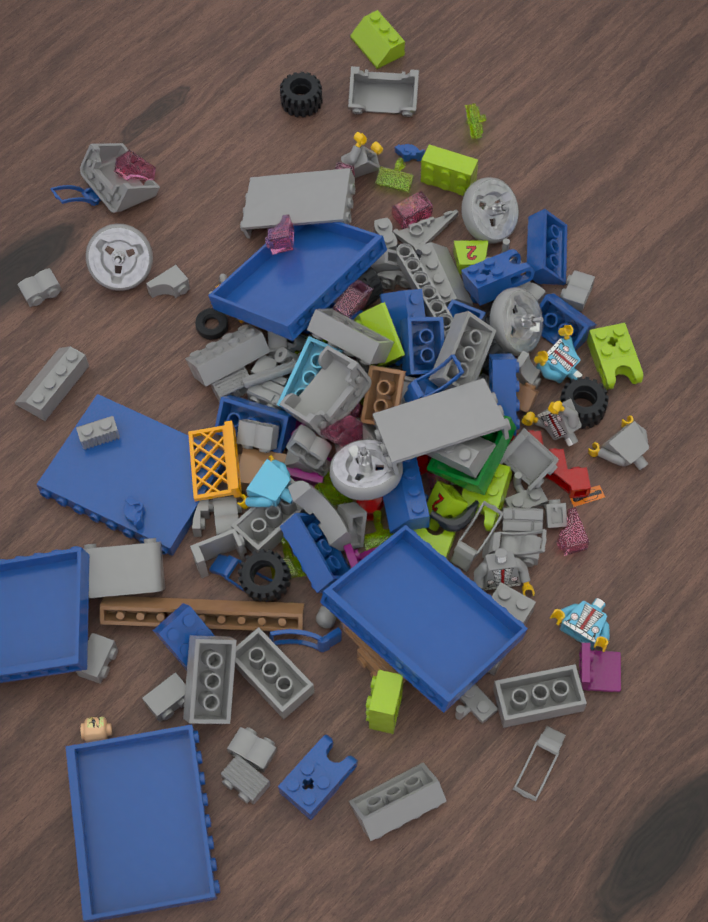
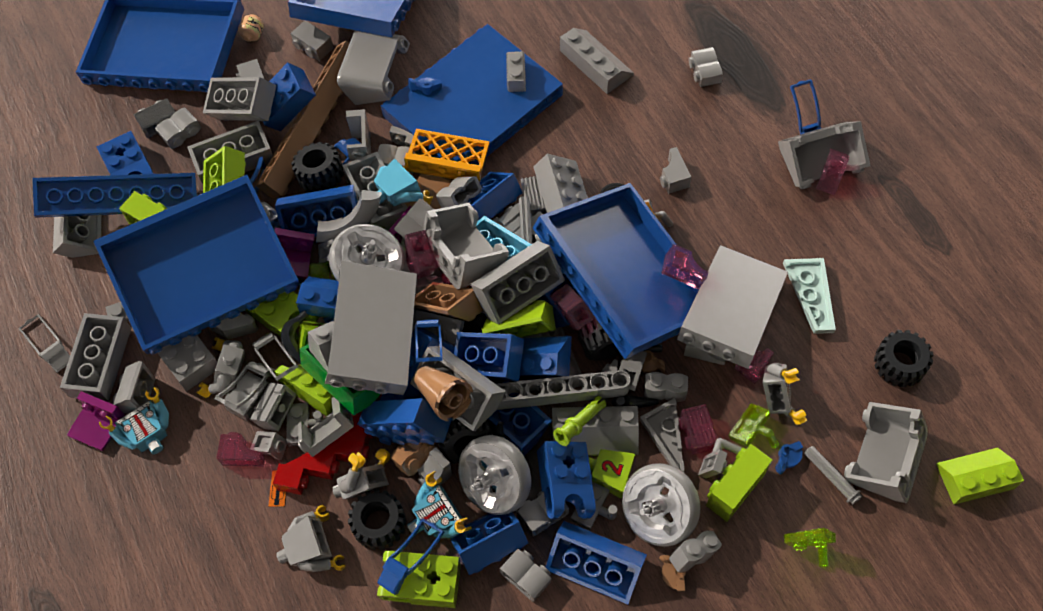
camera: 110 degrees right, 0 degrees up
(102, 264) = (725, 131): flat silver wheel -> none
(259, 163) = (812, 290): none -> light aqua wing
(316, 649) = (223, 167): none -> lime slope
(366, 757) = (107, 193): none -> blue plate
(425, 108) = (833, 475): none -> light grey axle
(440, 189) = (715, 462): none -> light grey plate
(457, 271) = (574, 425): none -> lime pin
(478, 350) = (443, 392): none -> medium nougat cone
(518, 183) = (695, 551): none -> light grey brick
(532, 201) = (670, 576): none -> medium nougat piece
(556, 645) = (133, 386): none -> light grey slope
(624, 363) = (394, 571): none -> blue piece

